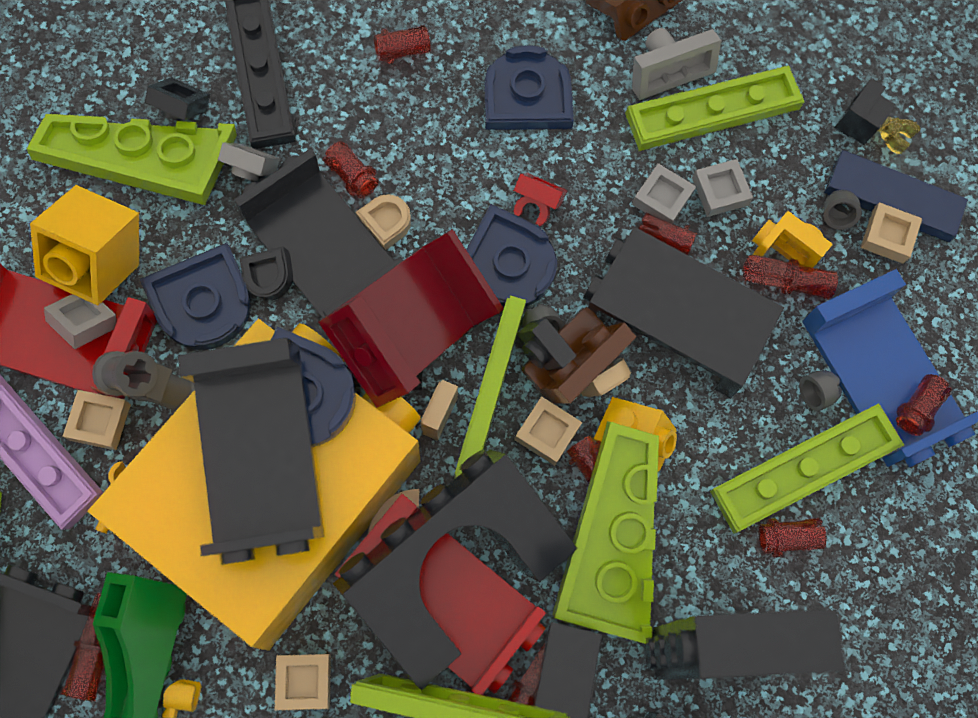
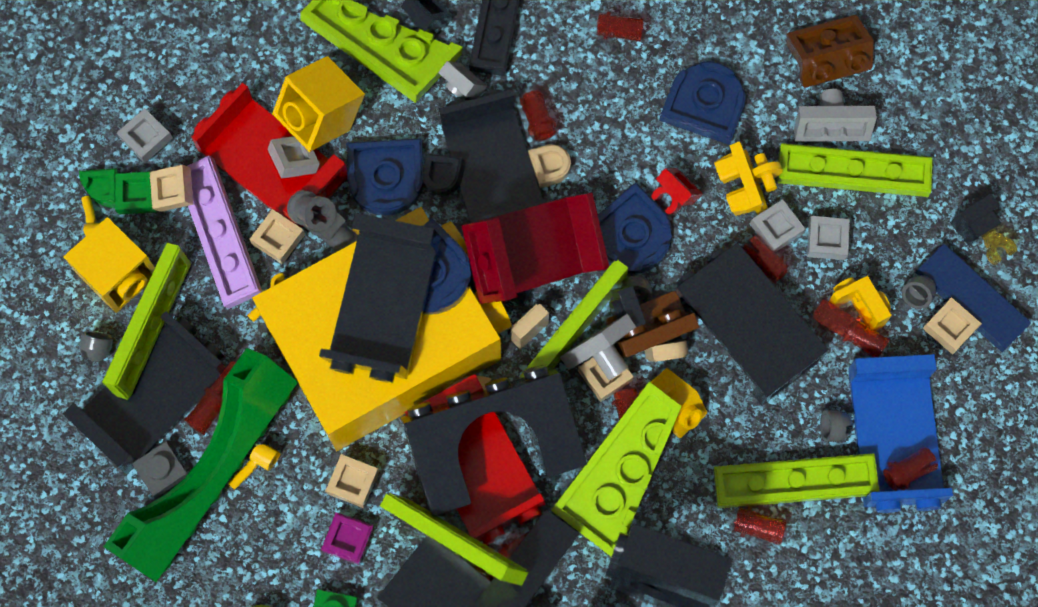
camera: 30 degrees right, 0 degrees up
(536, 402) = (601, 348): none -> light grey tile
(595, 143) = (738, 165): none -> yellow hips

